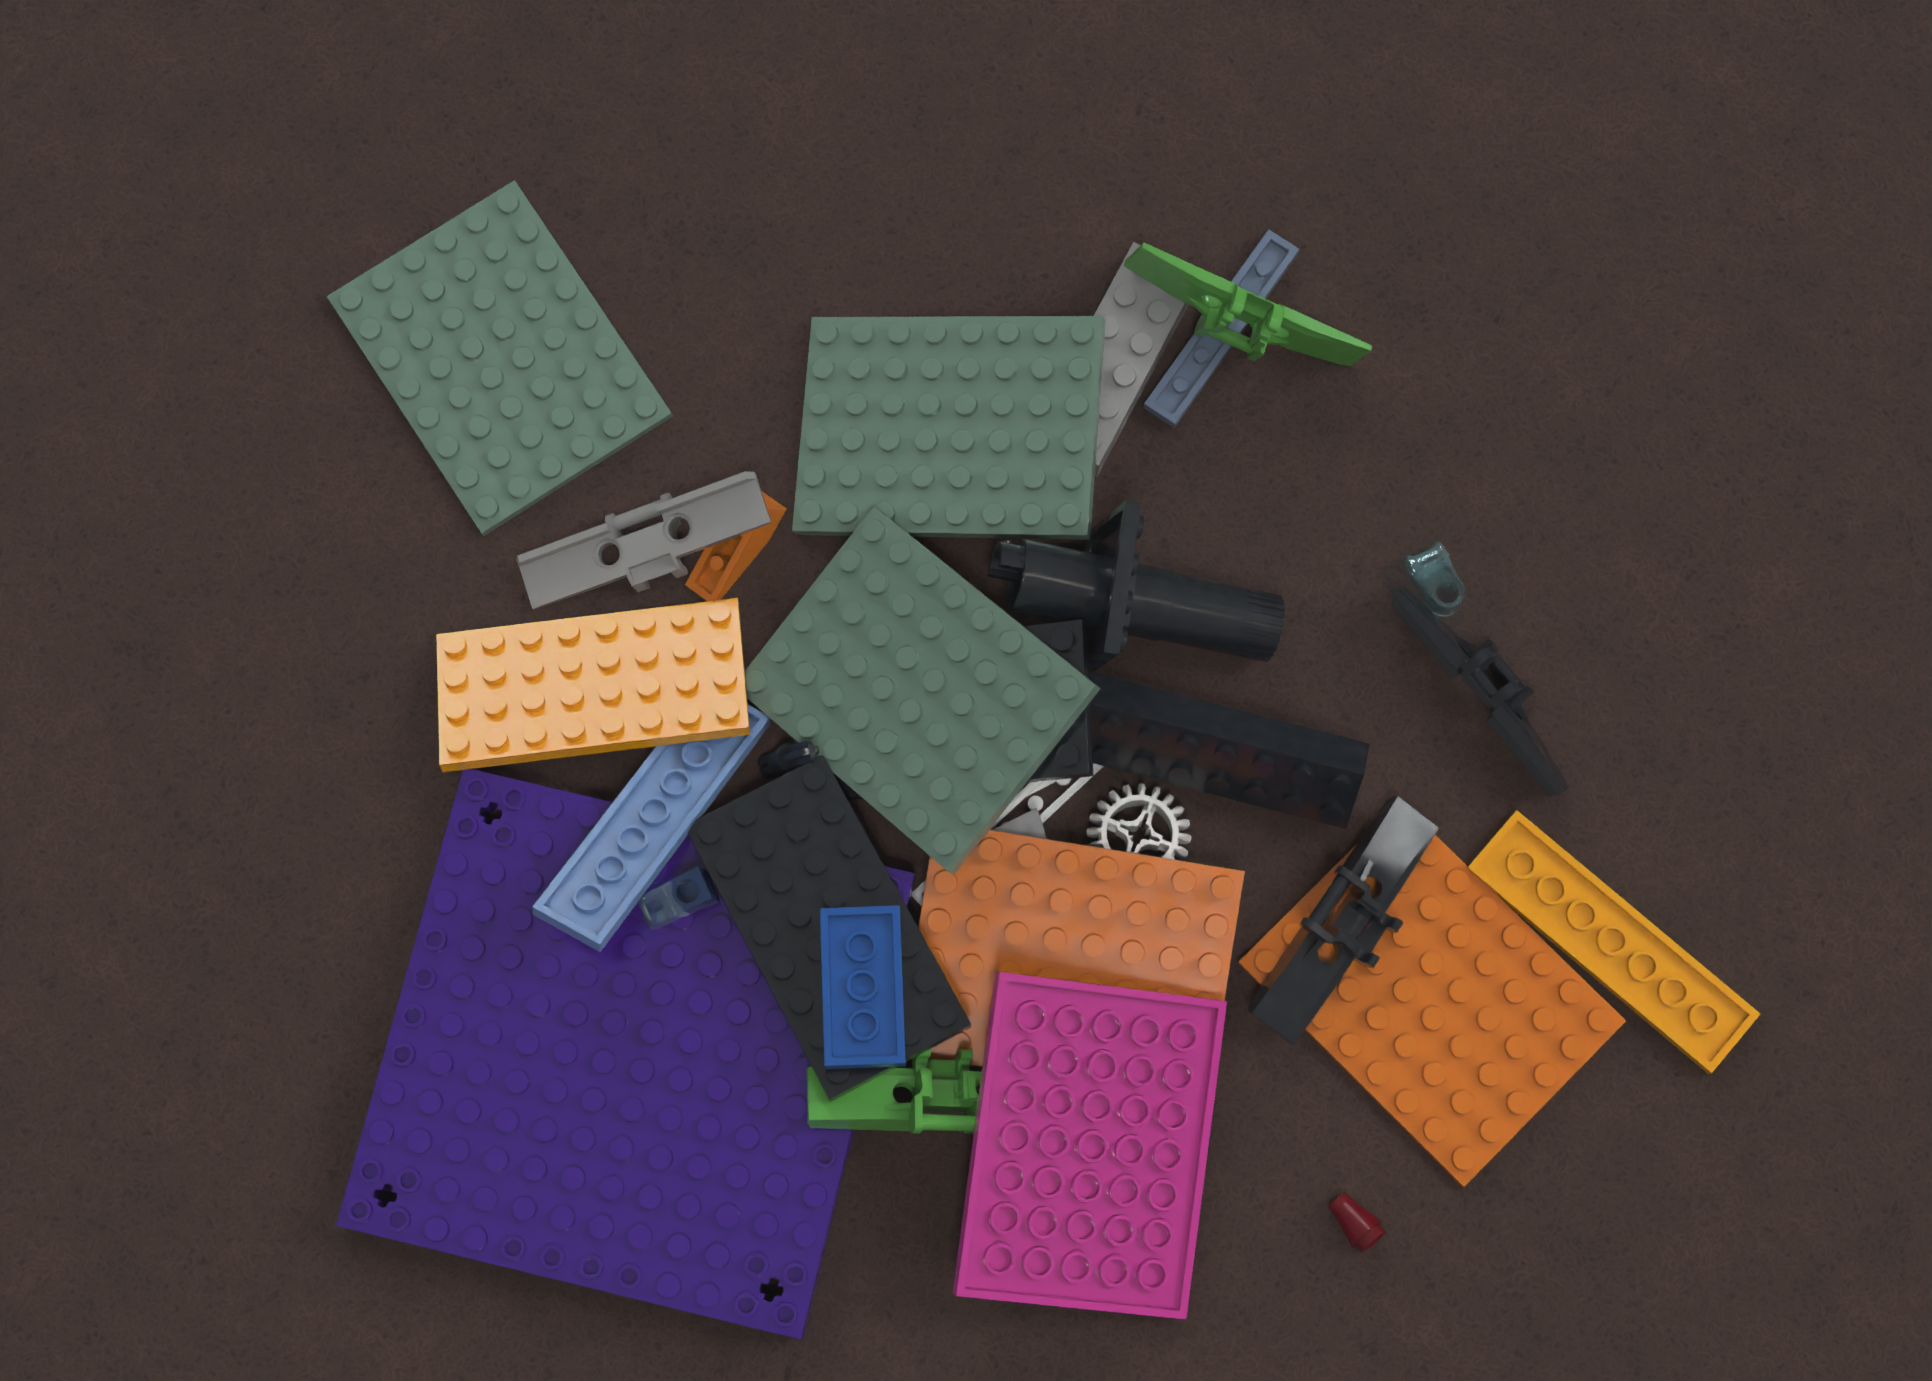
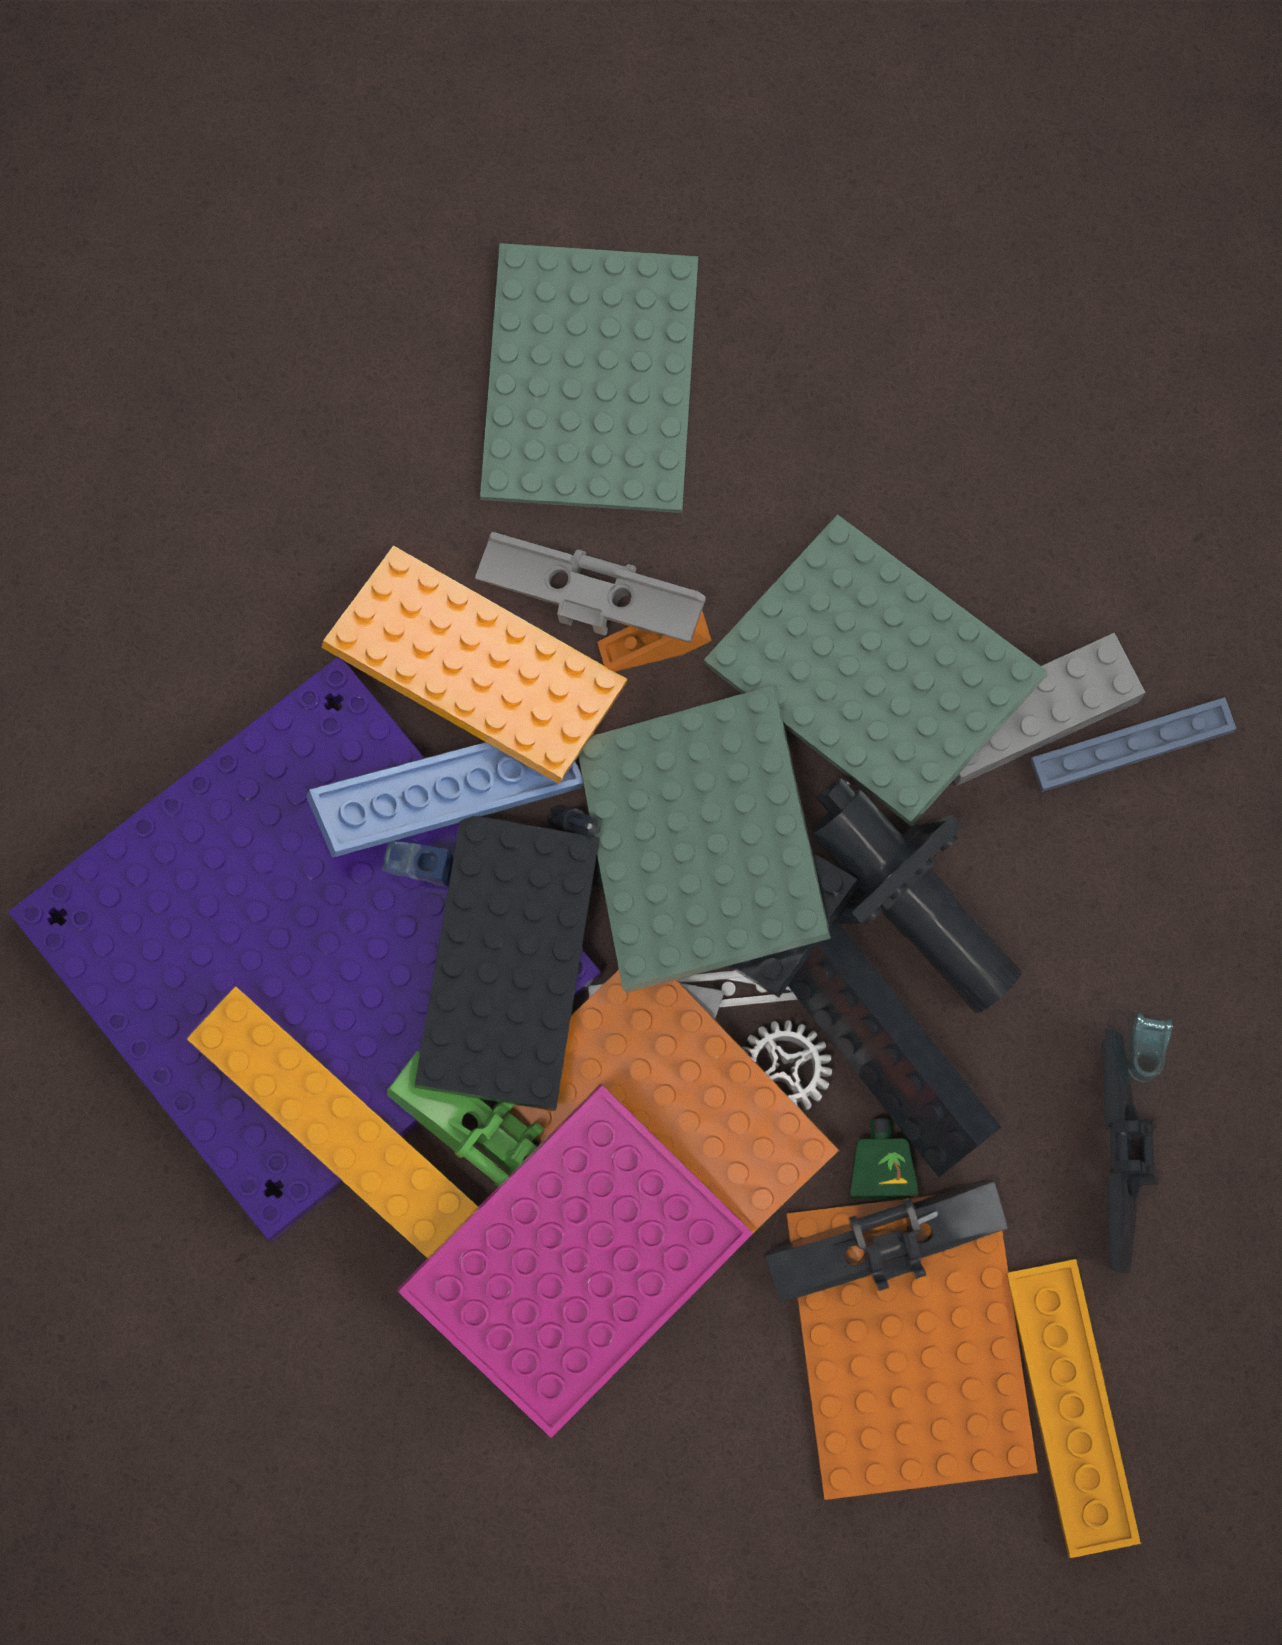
camera: 30 degrees right, 0 degrees up
(779, 1190) = (332, 1122): none -> light orange plate
(862, 987) = (497, 1022): blue plate -> none
(1223, 301) = (1145, 725): bright green piece -> none
(1289, 856) = (882, 1166): none -> dark green torso
(1357, 1223) = (727, 1466): dark red cone -> none

